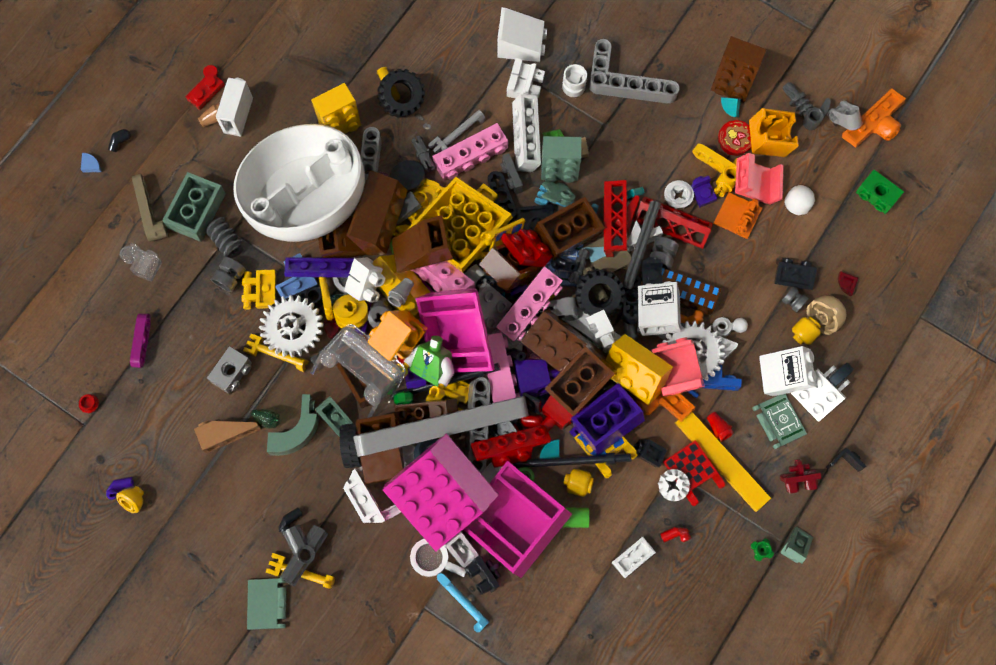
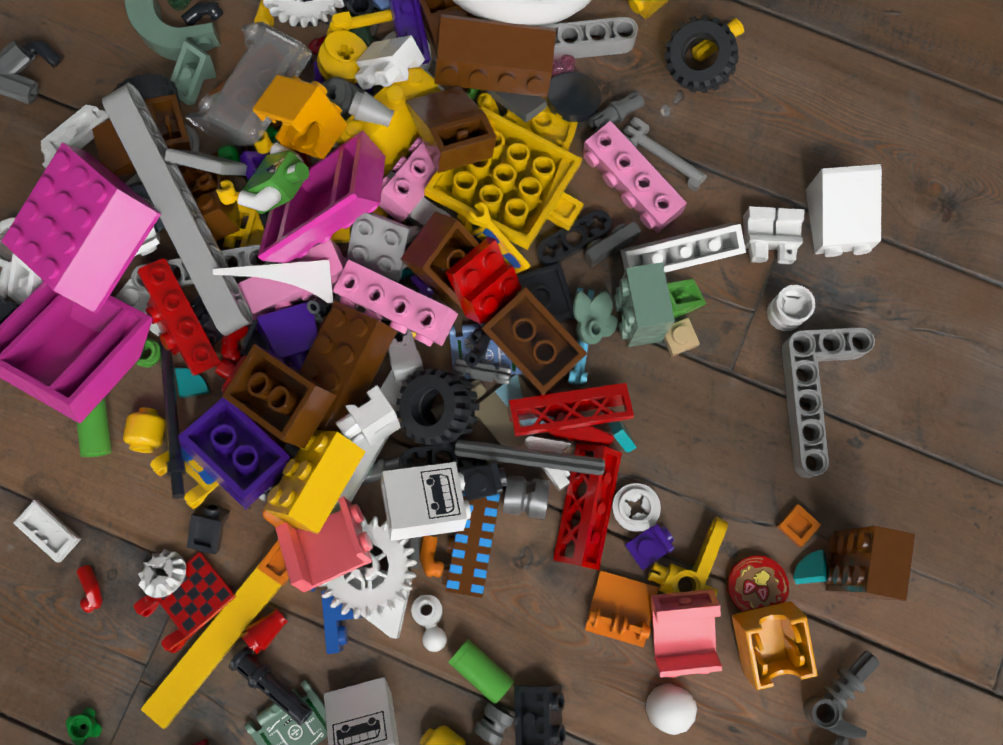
camera: 80 degrees right, 5 degrees up
(284, 404) = (201, 9): none -> black arm
(413, 402) = (205, 162): none -> light grey tile
(501, 354) = (309, 275): none -> white sticker
(704, 108) = (798, 525): none -> orange tile
(748, 431) = (260, 677): none -> black pin
(763, 301) = (481, 671): none -> bright green pin

